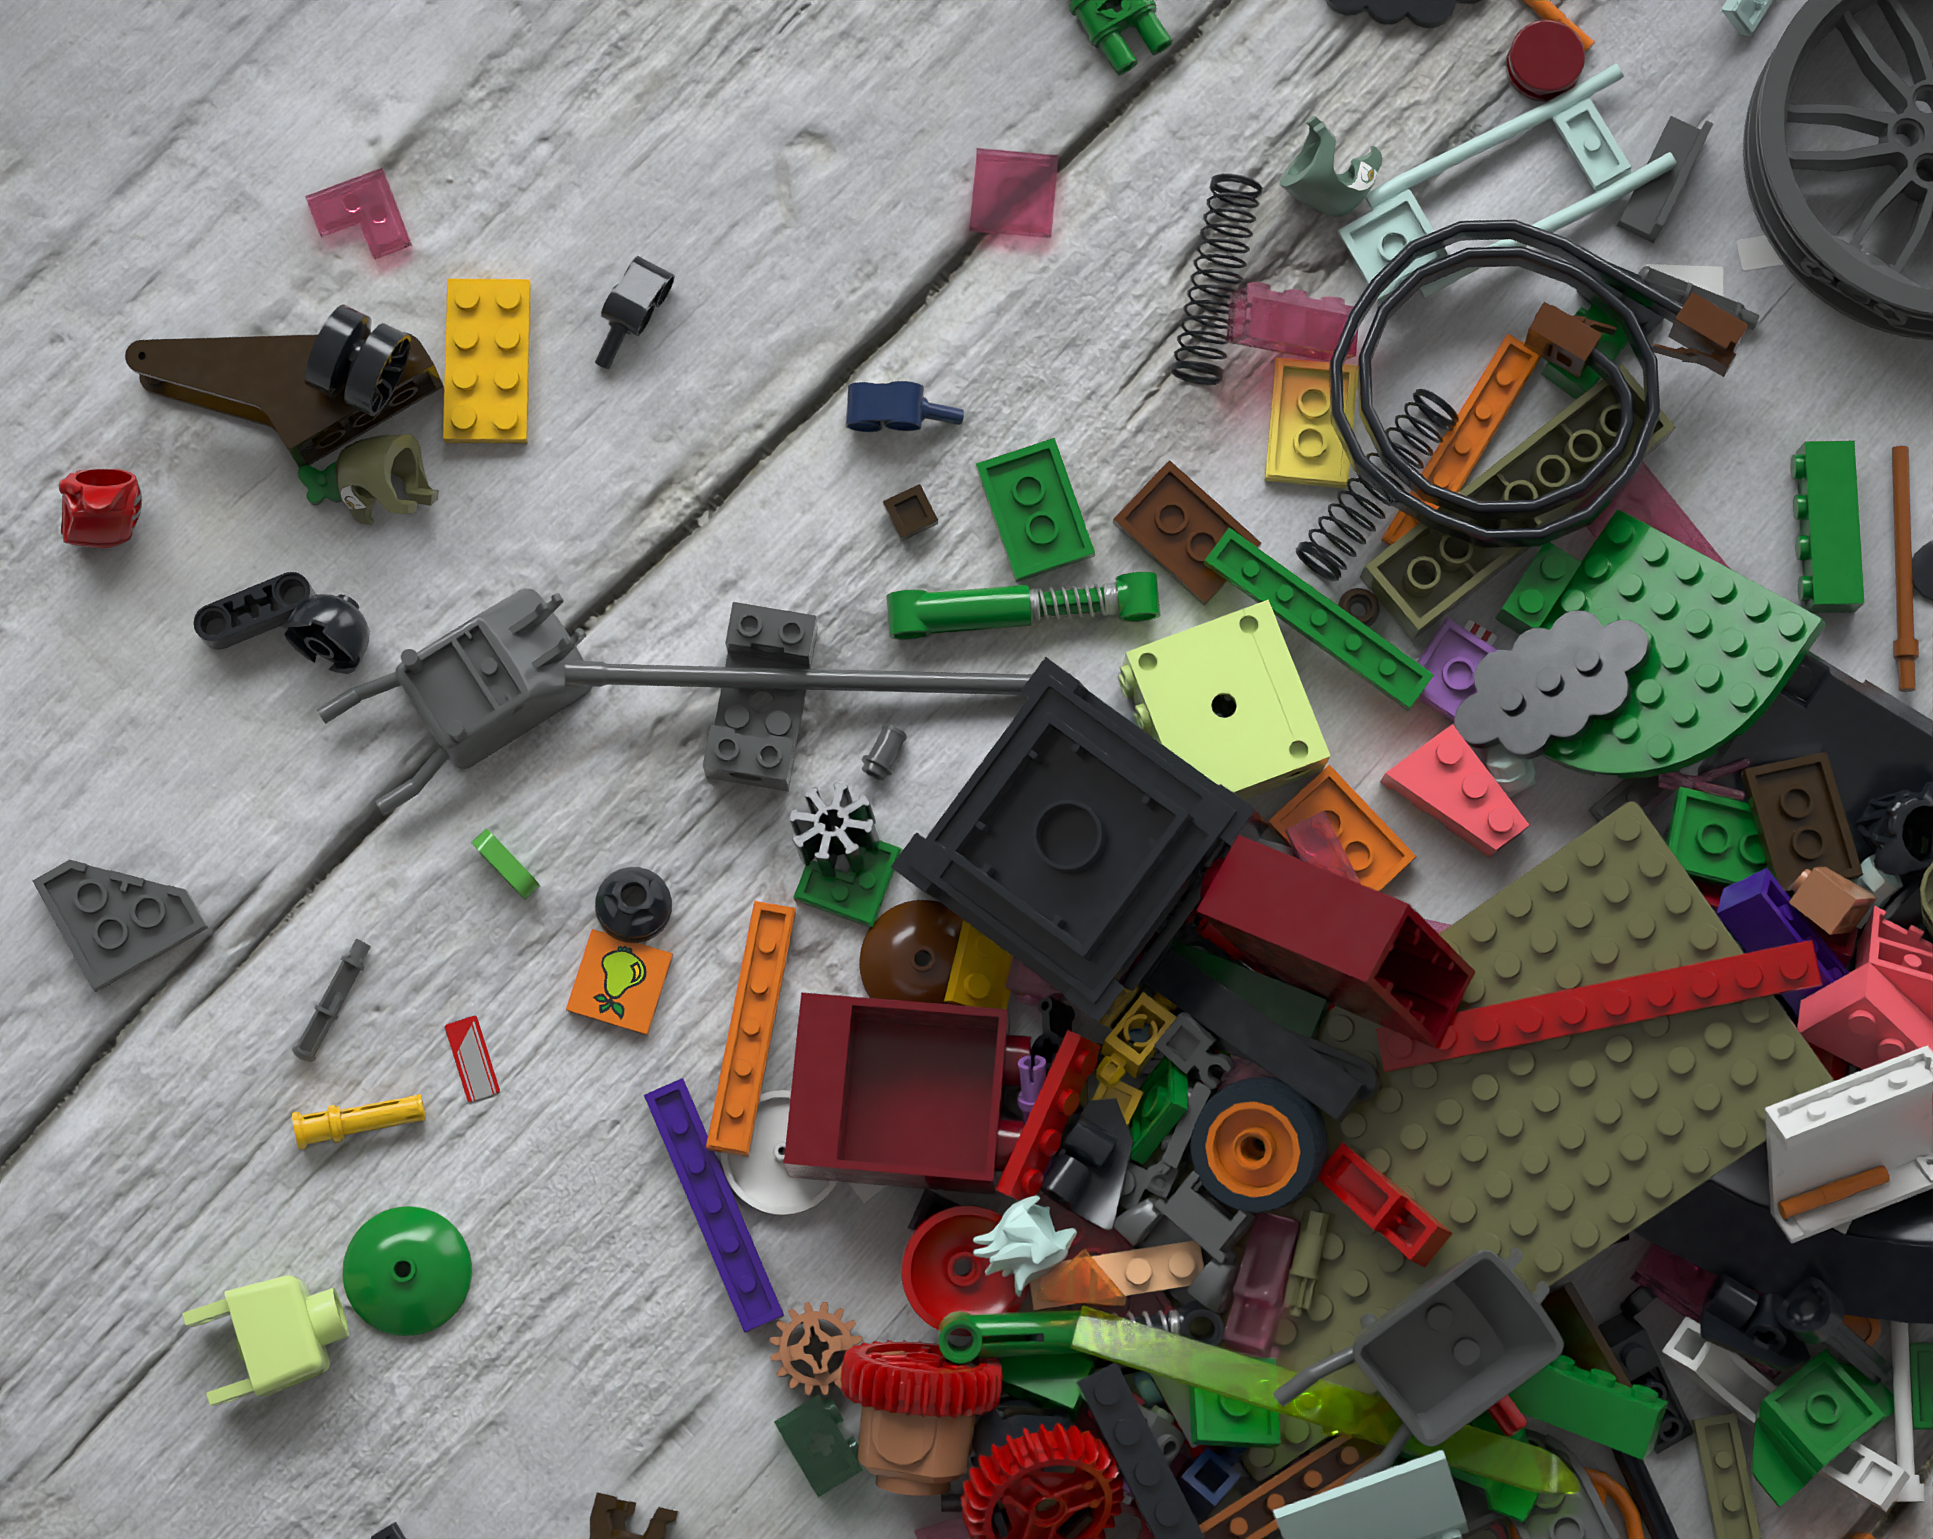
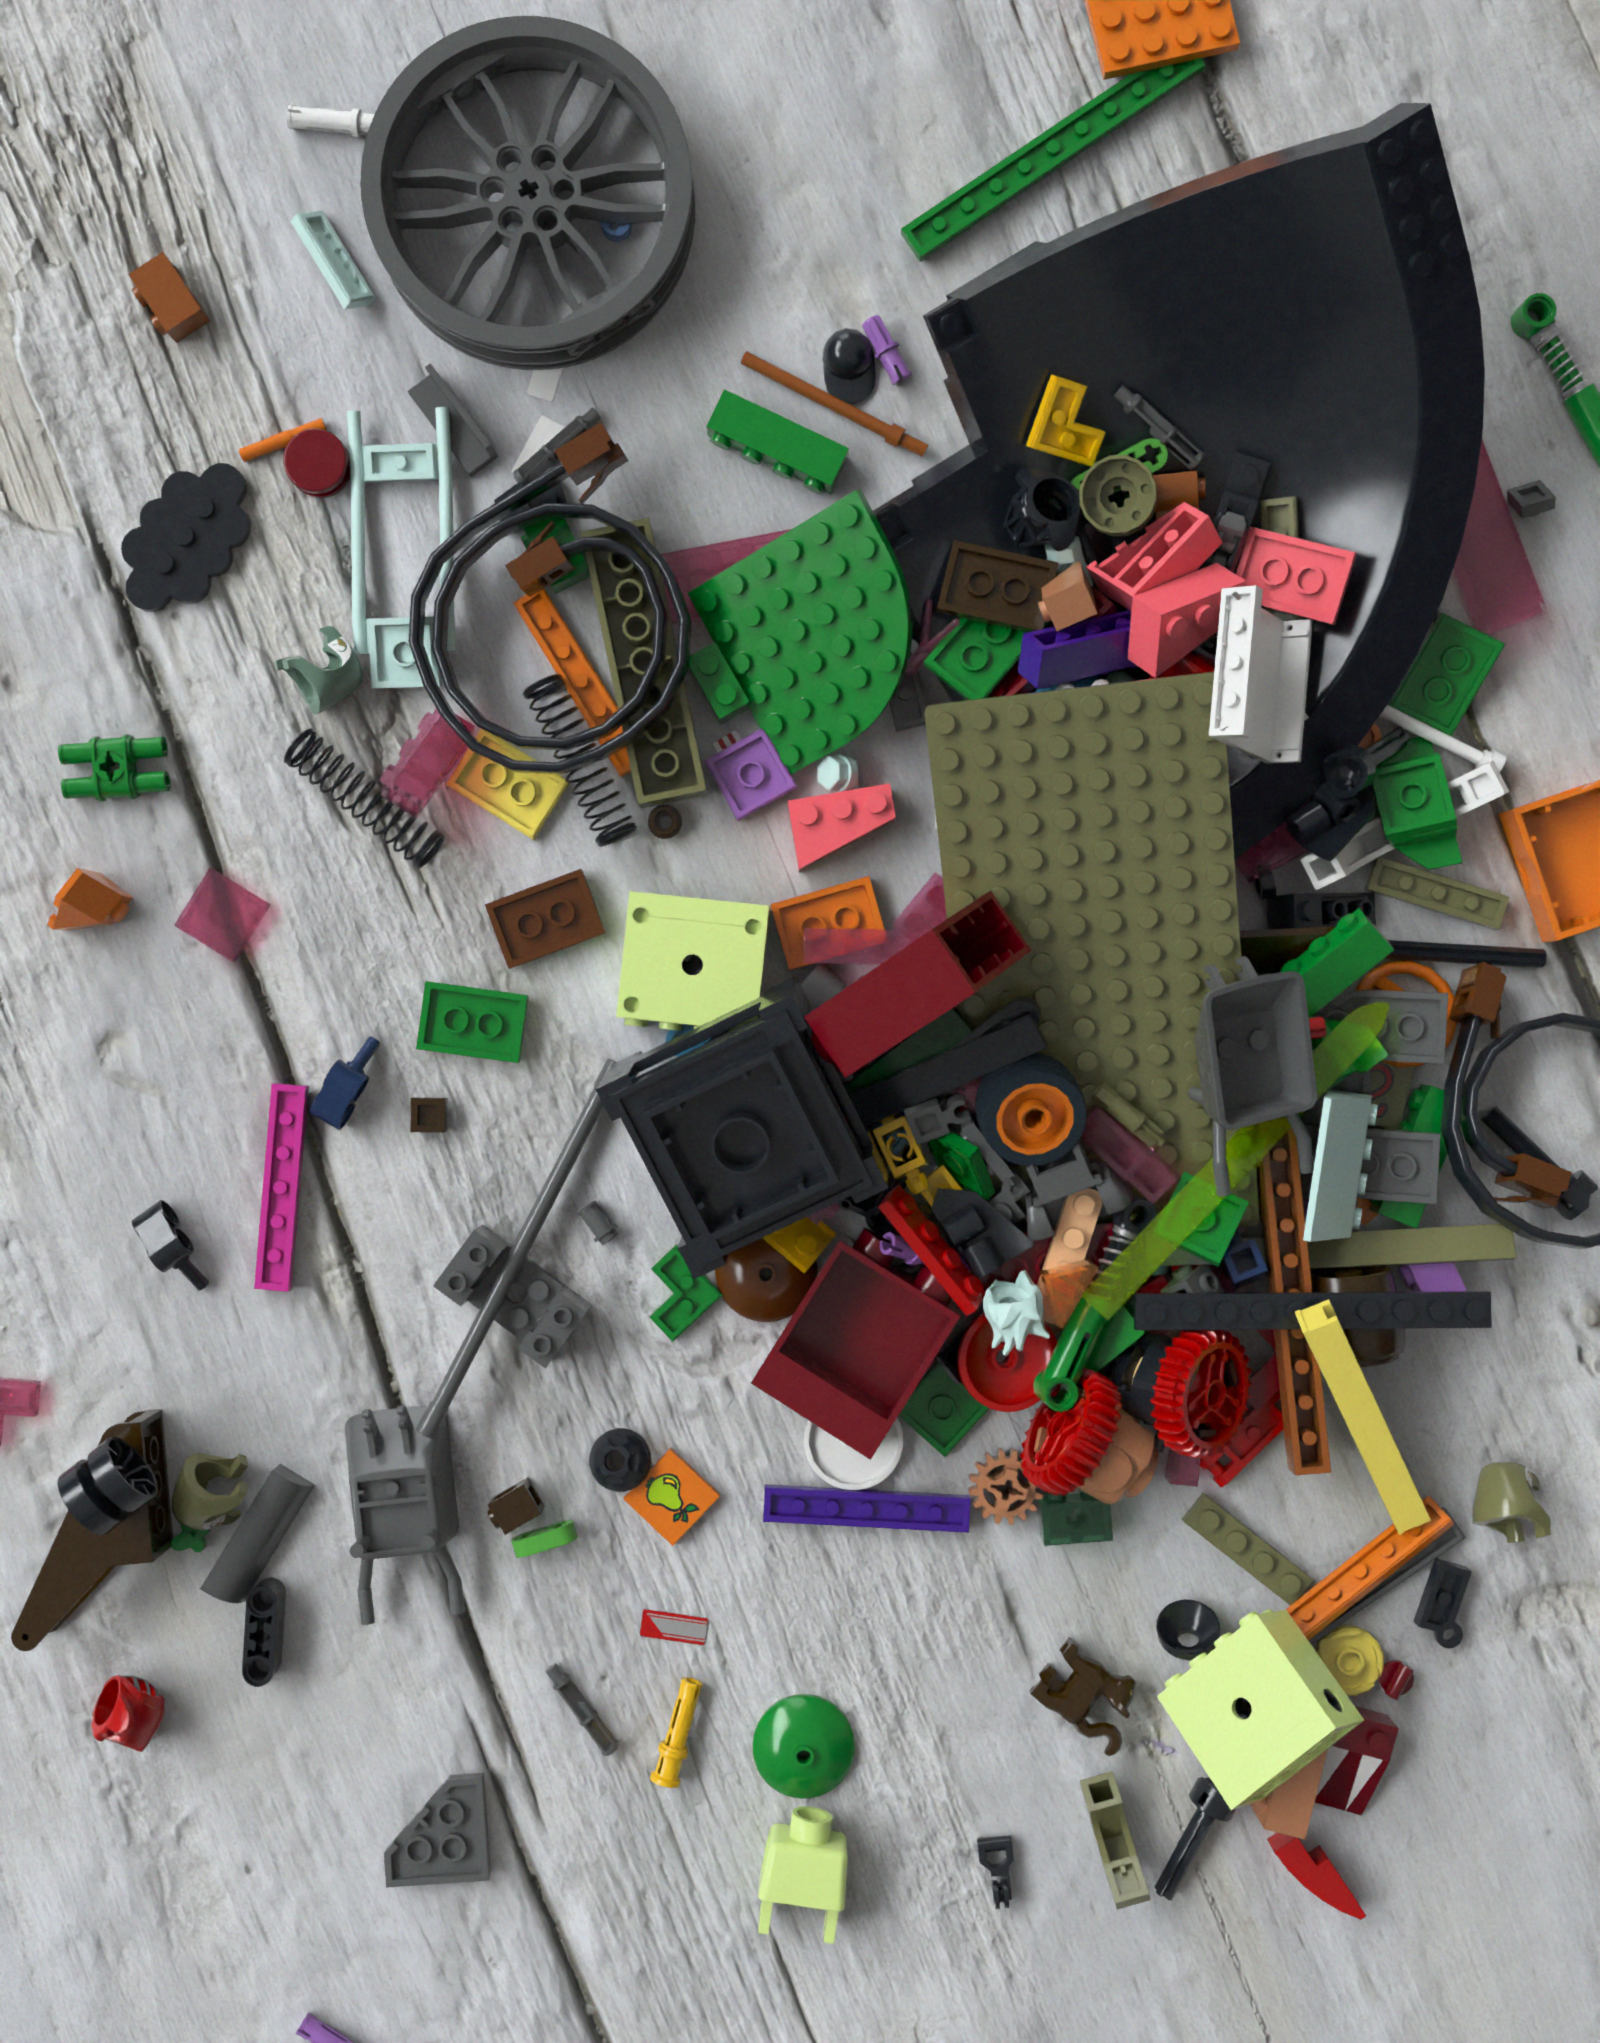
camera: 55 degrees left, 10 degrees up
(331, 629) = (305, 1585): black cylinder -> none
(358, 553) = (257, 1535): none -> dark grey brick
(487, 361) = (157, 1369): yellow plate -> none
(526, 814) = (515, 1506): none -> dark brown brick
(751, 1029) = (753, 1420): orange tile -> none
(752, 395) = (281, 1187): none -> dark pink plate
(816, 832) = (629, 1275): black gear -> none
(866, 1235) = (941, 1410): none -> green tile
(922, 613) = (538, 1072): green piece -> none
(956, 48) = (88, 902): none -> orange slope
(1319, 619) = (659, 857): green plate -> none
(1384, 1205) = (1121, 1042): red slope -> none
(1553, 684) = (796, 711): plate -> none
(1609, 1005) = (1069, 800): red plate -> none
(1833, 1192) = (1278, 710): orange piece -> none

